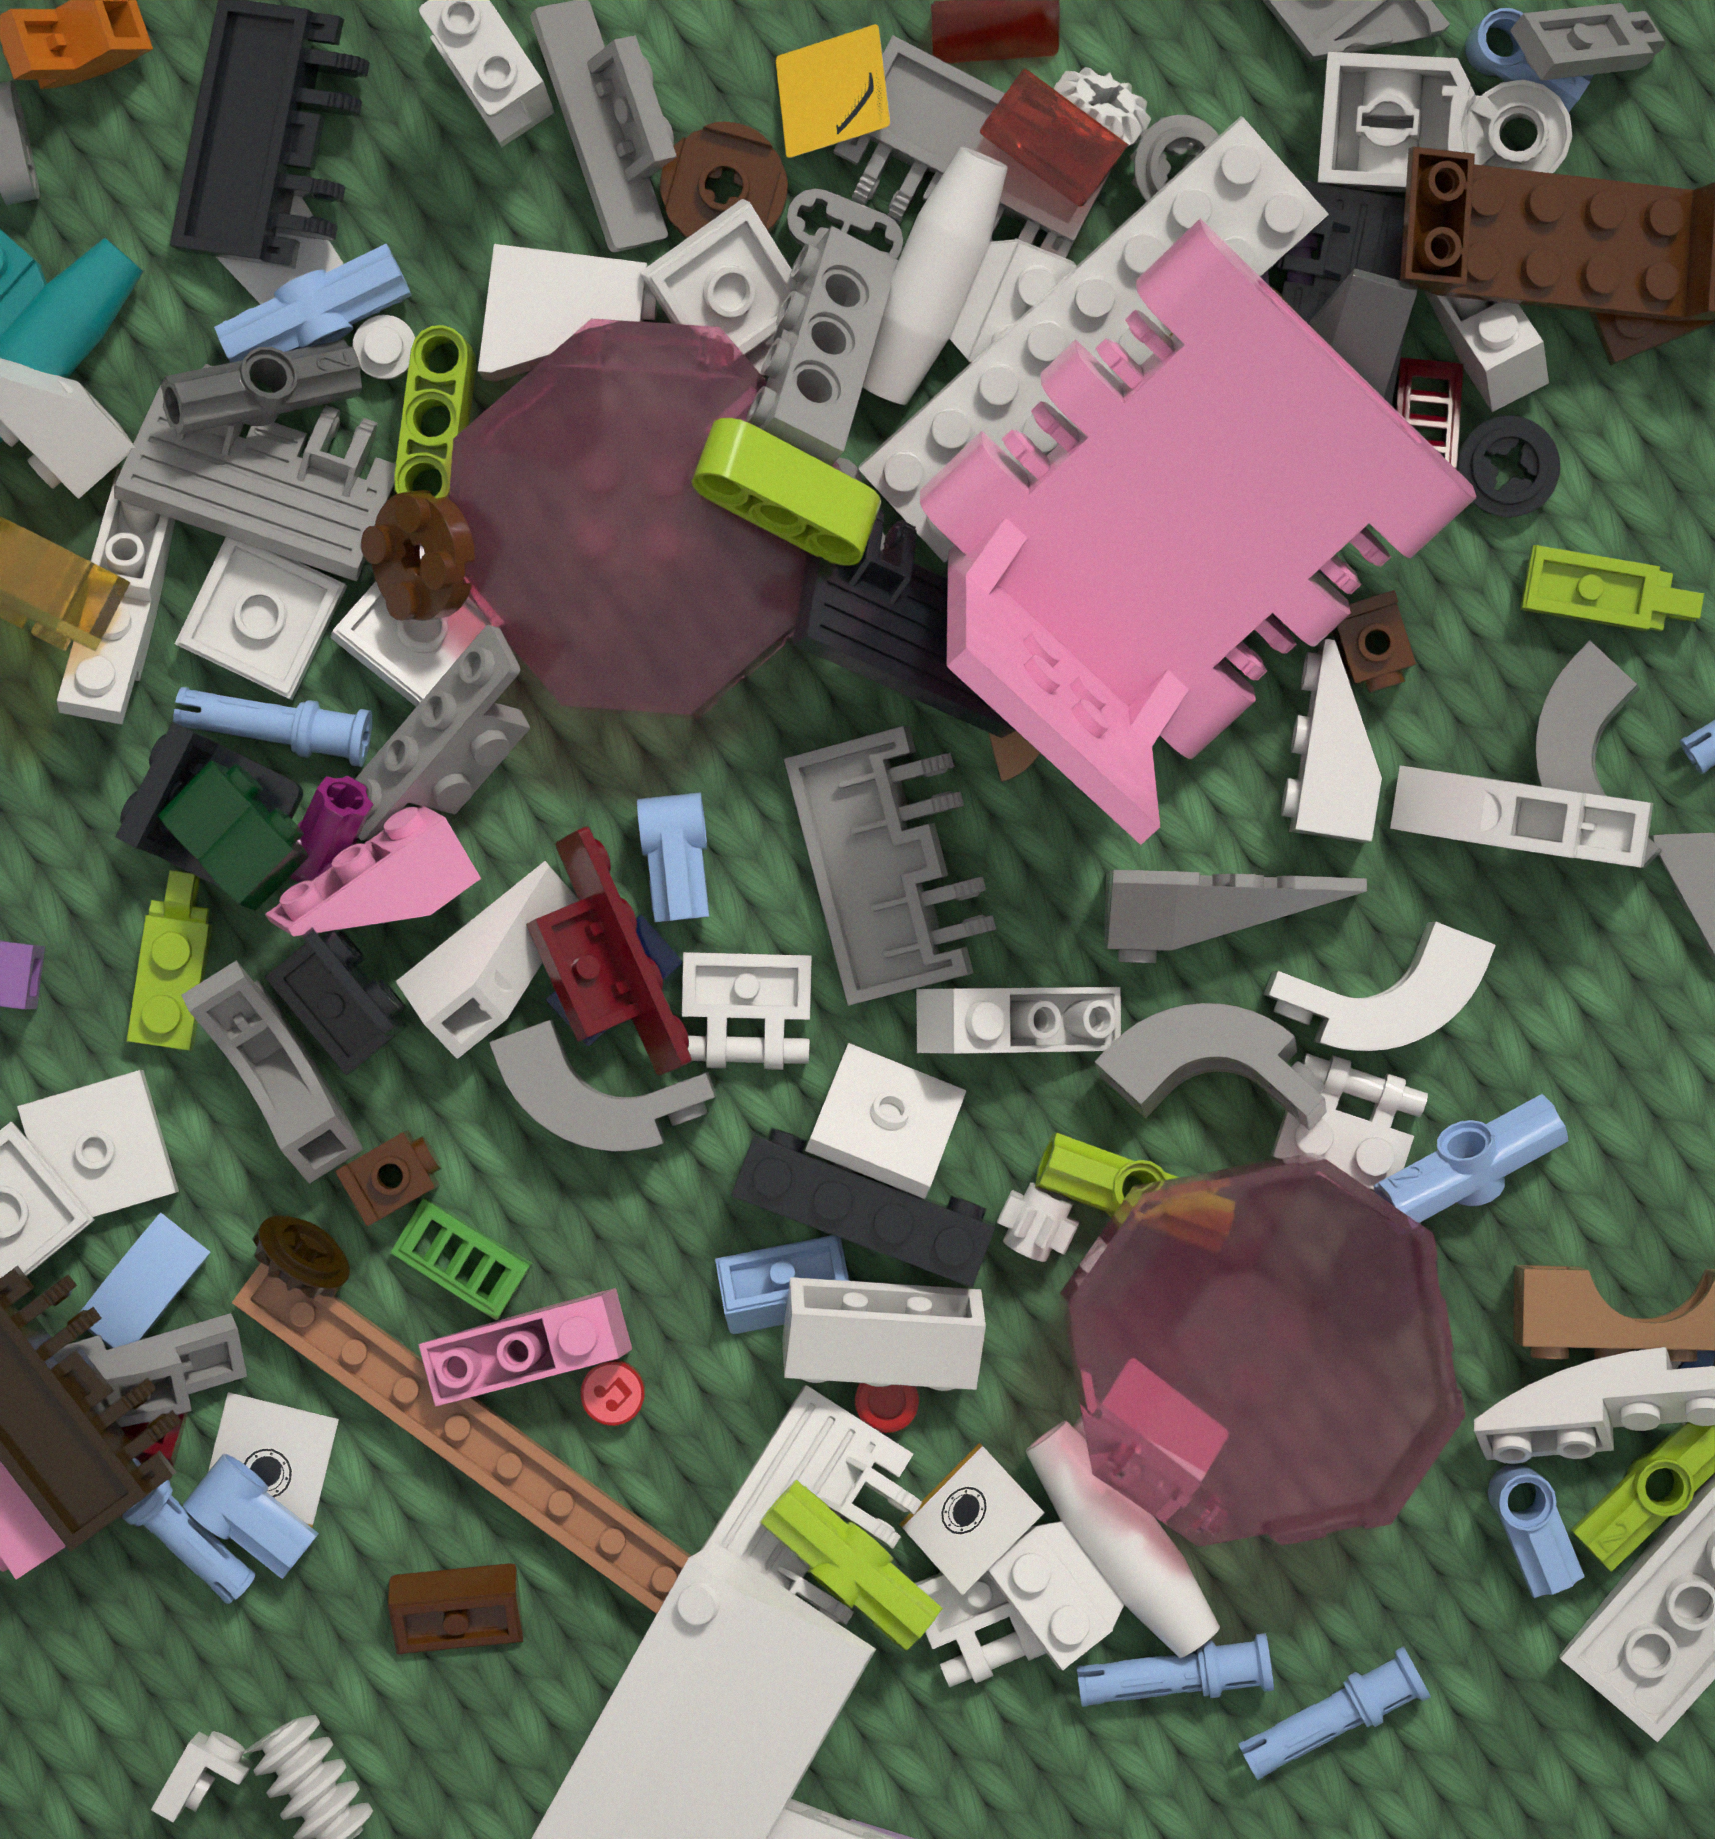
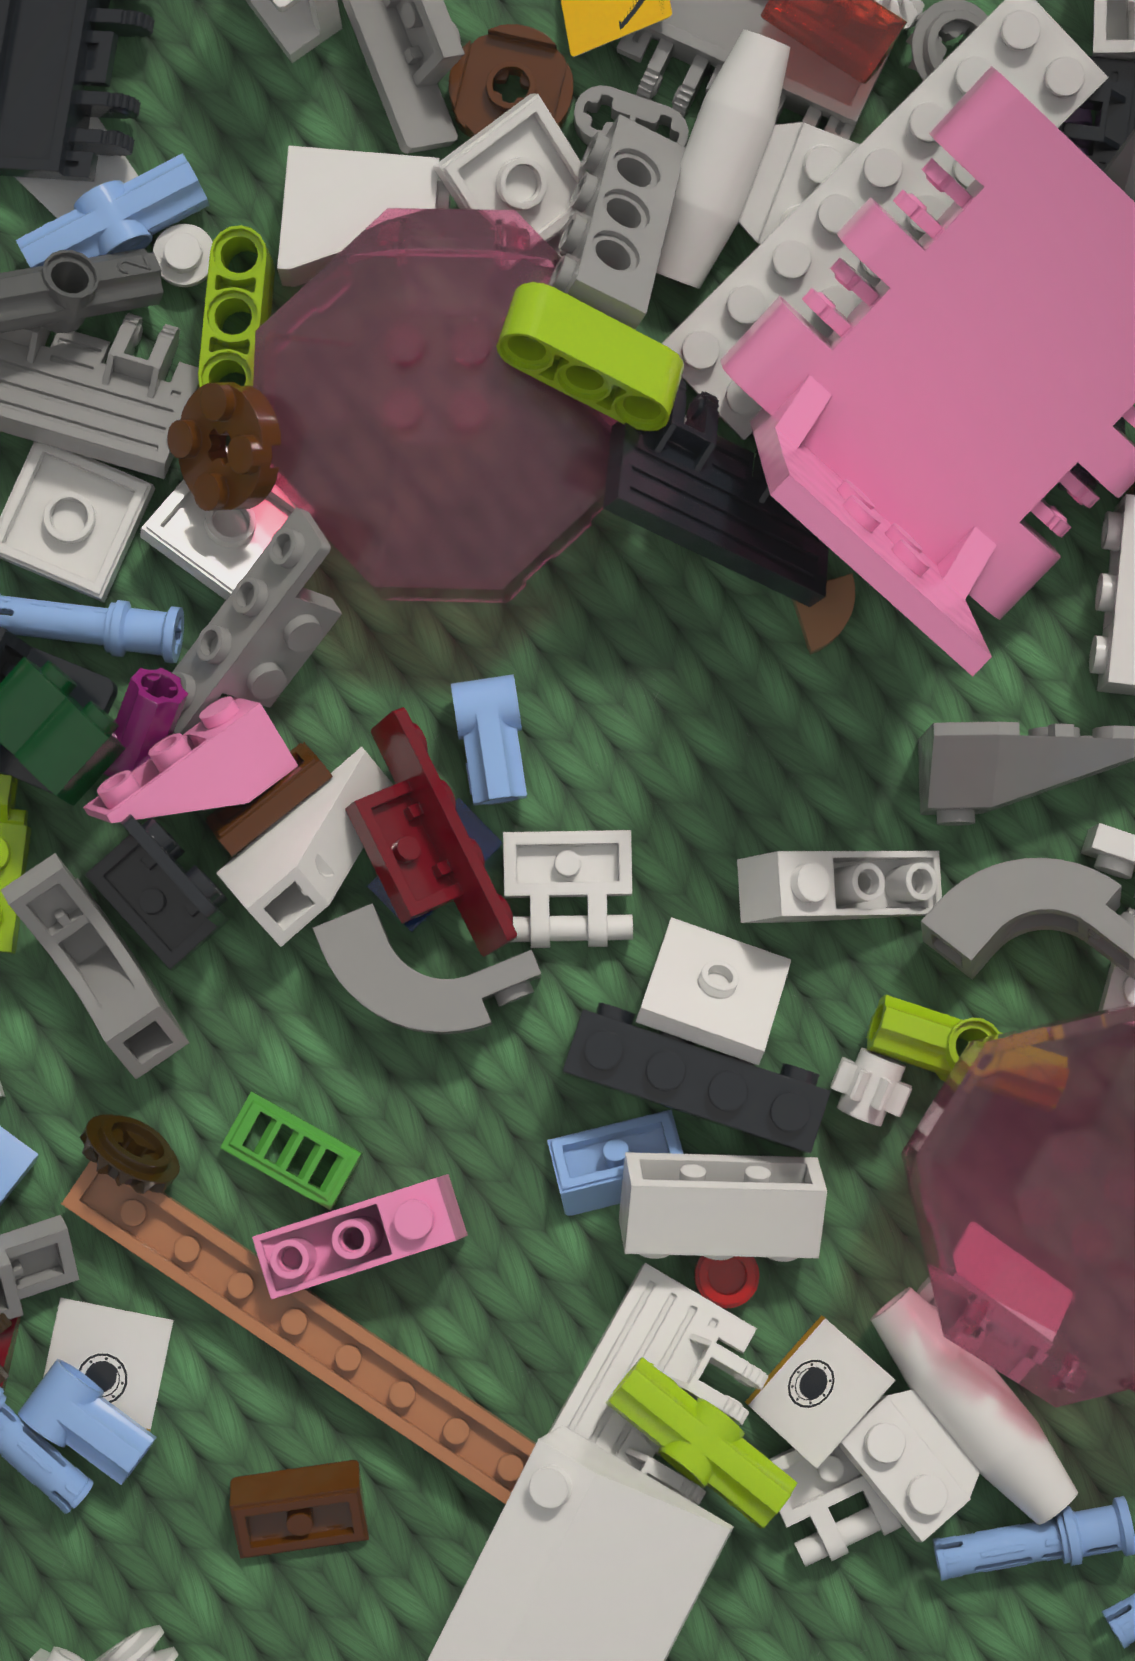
camera: 10 degrees left, 5 degrees down
(363, 1179) = (195, 1085): reddish brown brick -> none
(424, 934) = (242, 823): none -> reddish brown tile
(612, 1392) = (449, 1280): coral tile -> none
(875, 867) = (690, 739): light grey hinge -> none

